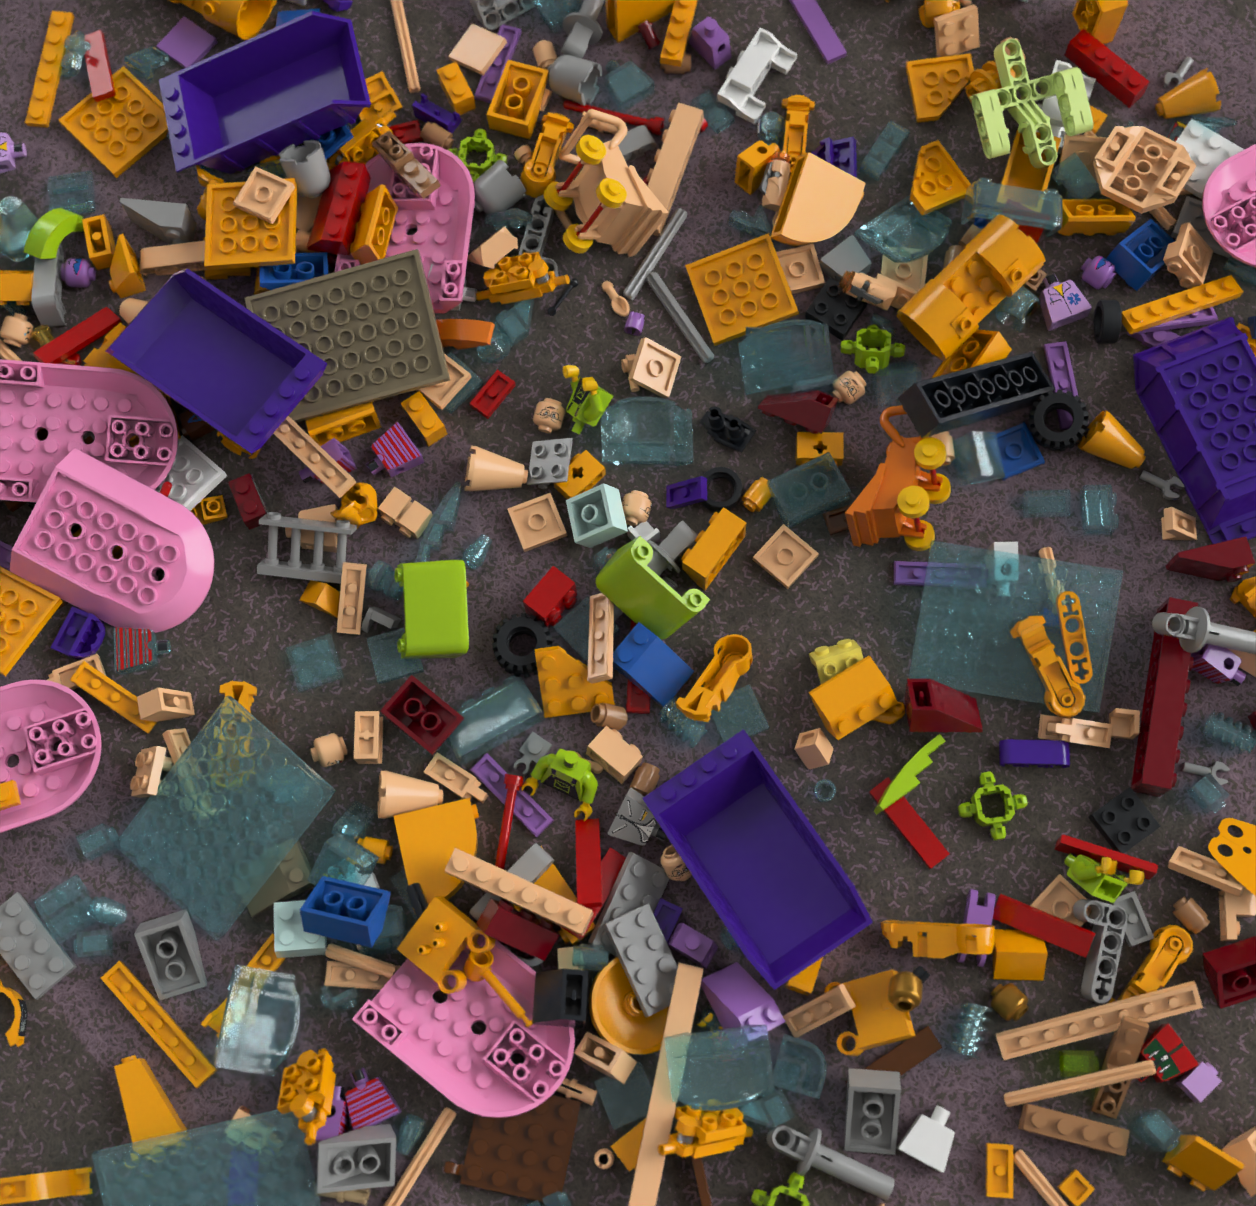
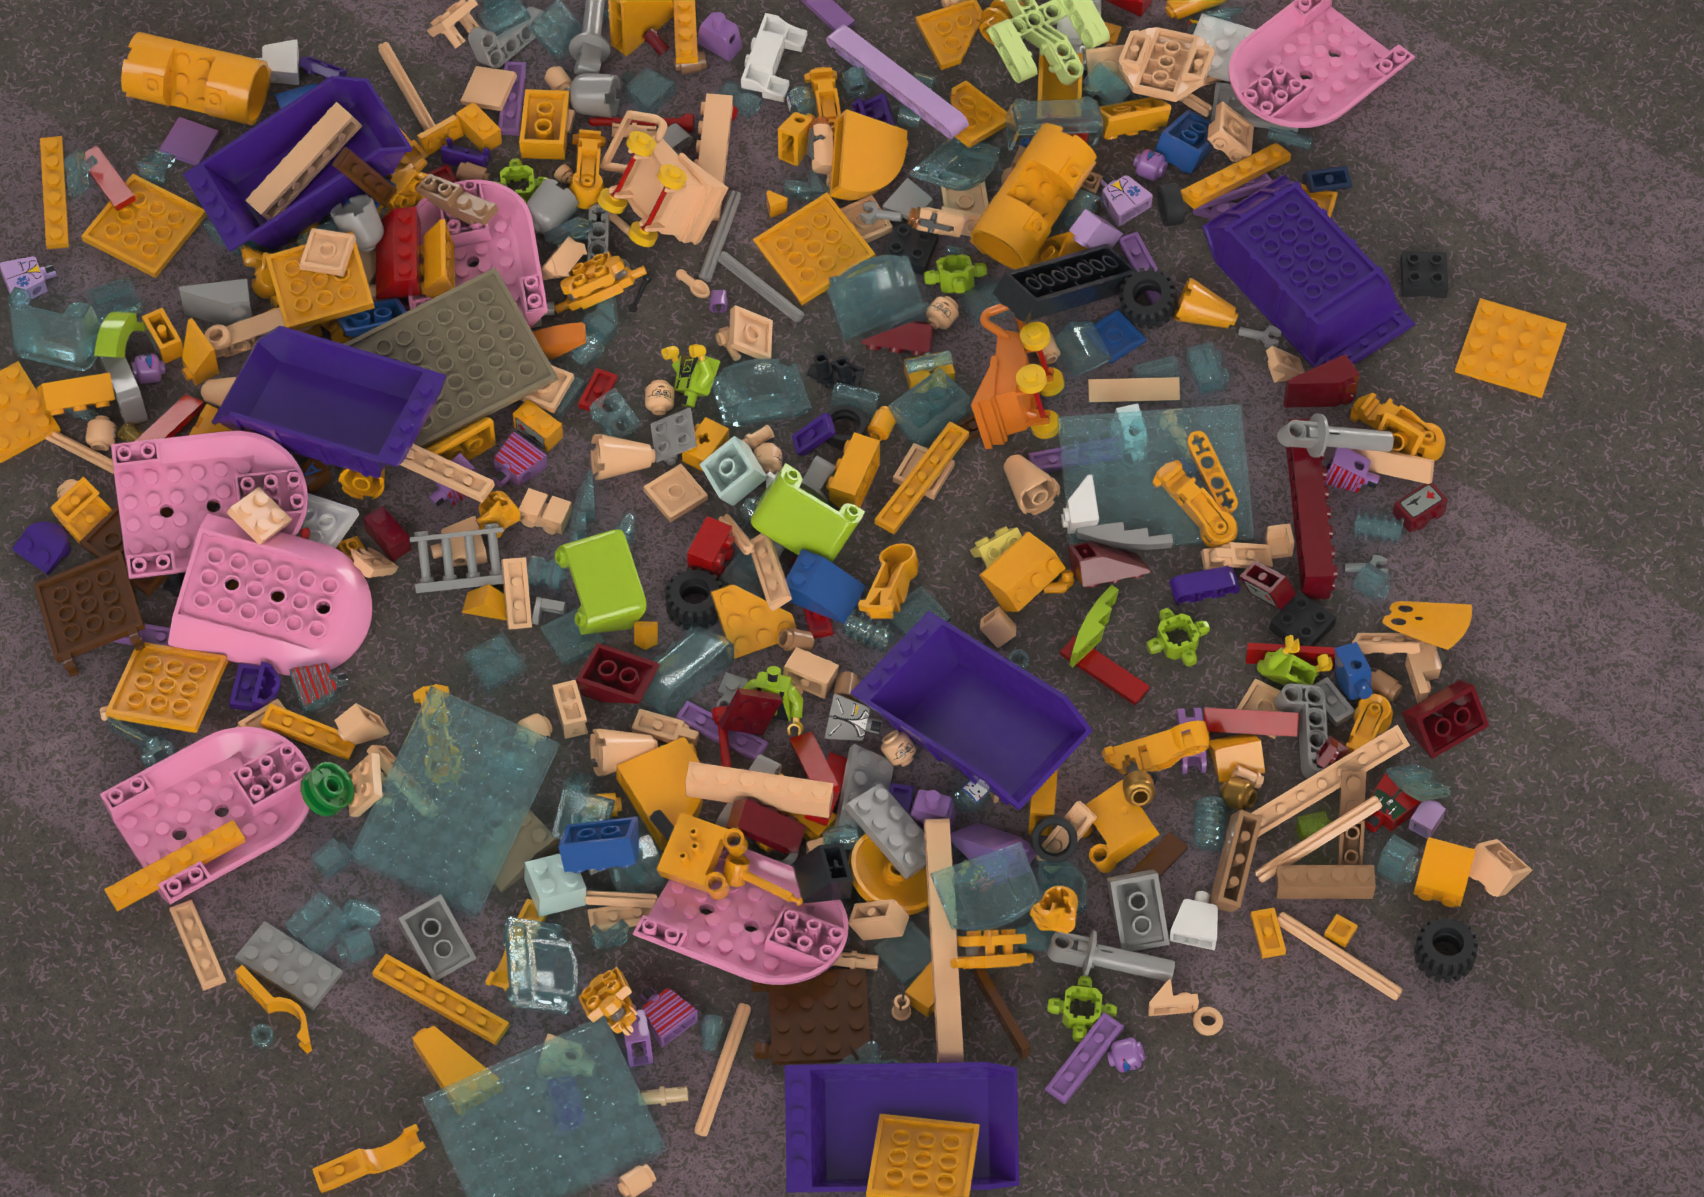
camera: 20 degrees left, 15 degrees down
(117, 465) = (259, 516): none -> light nougat plate
(123, 770) = (327, 789): none -> green wheel
(141, 251) = (218, 329): none -> light nougat piece
(224, 531) = (373, 563): none -> light nougat plate
(272, 93) = (304, 162): none -> light nougat brick
(314, 125) = (364, 177): none -> reddish brown tile
(357, 1160) = (673, 1052): light grey slope -> none
(412, 89) = (436, 136): none -> light orange plate
(466, 671) = (645, 634): none -> light orange slope
(505, 425) = (620, 413): none -> clear light blue brick
(539, 790) = (750, 711): none -> dark red plate
(582, 585) = (741, 538): none -> light nougat axle
(629, 482) = (758, 437): none -> light nougat pin
(718, 232) = (776, 203): none -> light orange slope
(740, 461) = (861, 398): none -> clear light blue slope
(780, 567) = (921, 477): none -> light orange plate
(785, 1104) = (1056, 910): none -> light orange head
(801, 1035) = (1054, 857): none -> black tyre
(813, 266) = (870, 218): none -> light grey bar
(819, 442) = (928, 361): none -> clear light blue pin
(828, 115) = (854, 77): none -> clear light blue brick
(870, 130) = (898, 82): none -> lavender beam
(886, 598) = (1030, 485): none -> light nougat cone
(930, 647) = (1081, 507): none -> white slope
(958, 680) = (1115, 536): none -> light grey slope
(986, 1086) = (1235, 860): none -> medium nougat brick
(1018, 516) = (1133, 389): none -> light nougat tile
(1023, 337) = (1094, 231): none -> lavender brick
(1028, 987) = (1256, 778): none -> light nougat pin
(1099, 774) = (1267, 585): none -> dark red brick
(1115, 992) = (1331, 752): none -> dark red bracket
(1163, 900) = (1353, 679): none -> blue torso
(1198, 1041) = (1418, 782): none -> clear light blue slope

